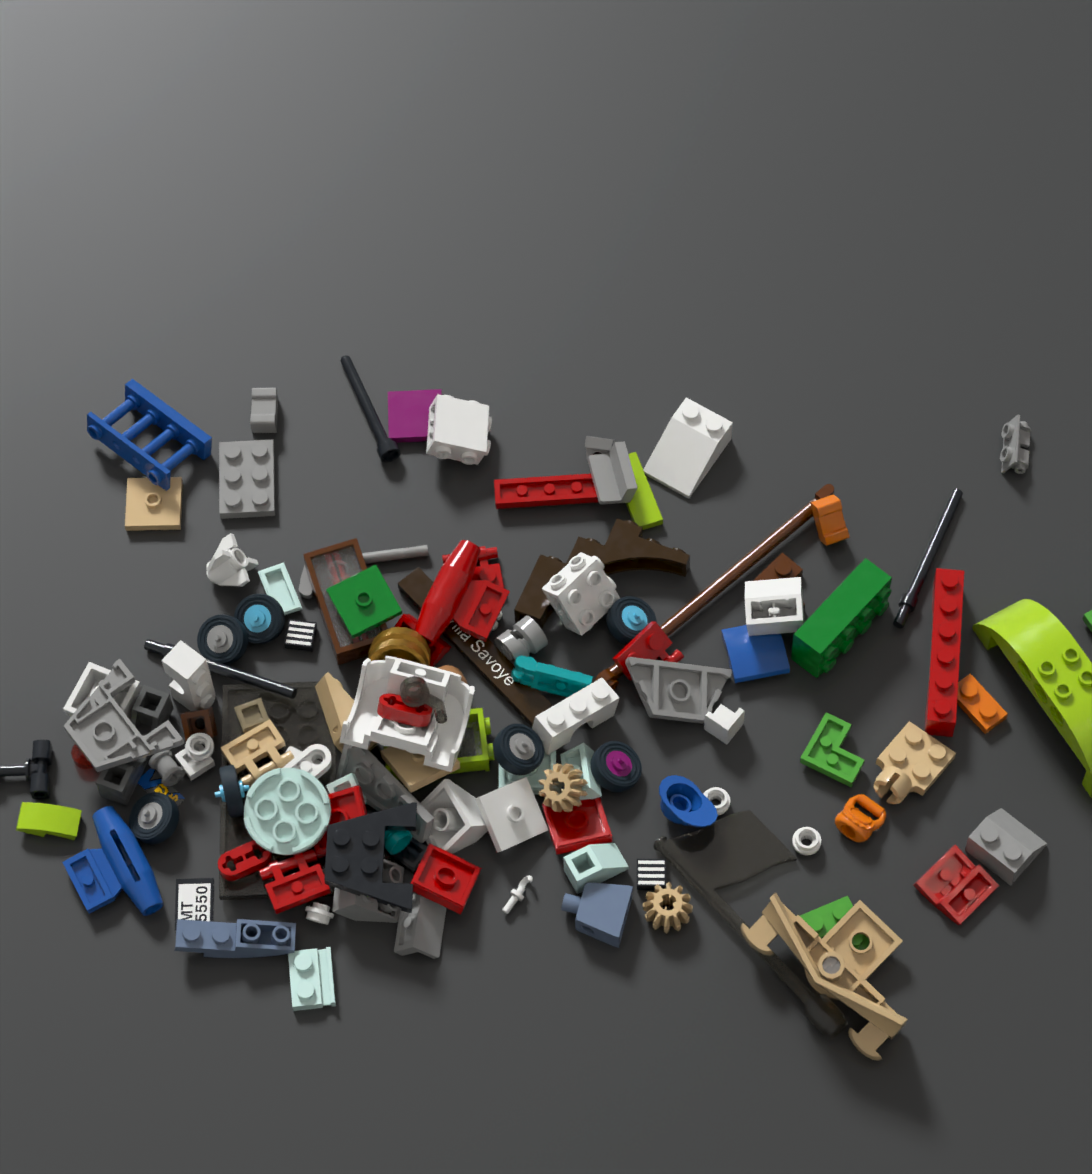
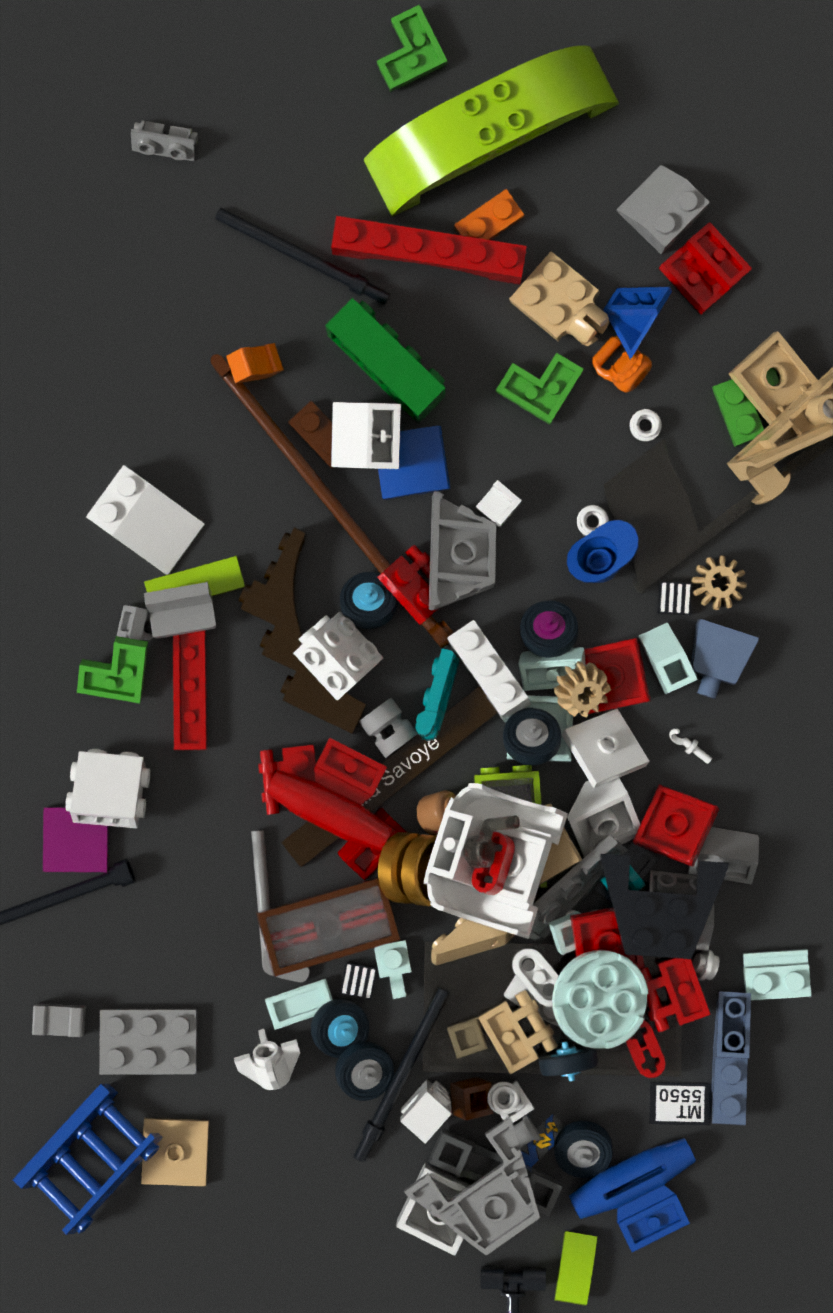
camera: 85 degrees left, 25 degrees up
(316, 661) = (393, 962): none -> light aqua plate
(364, 601) = (340, 906): green plate -> none
(555, 437) = (118, 680): none -> bright green plate
(905, 823) = (634, 312): none -> blue slope

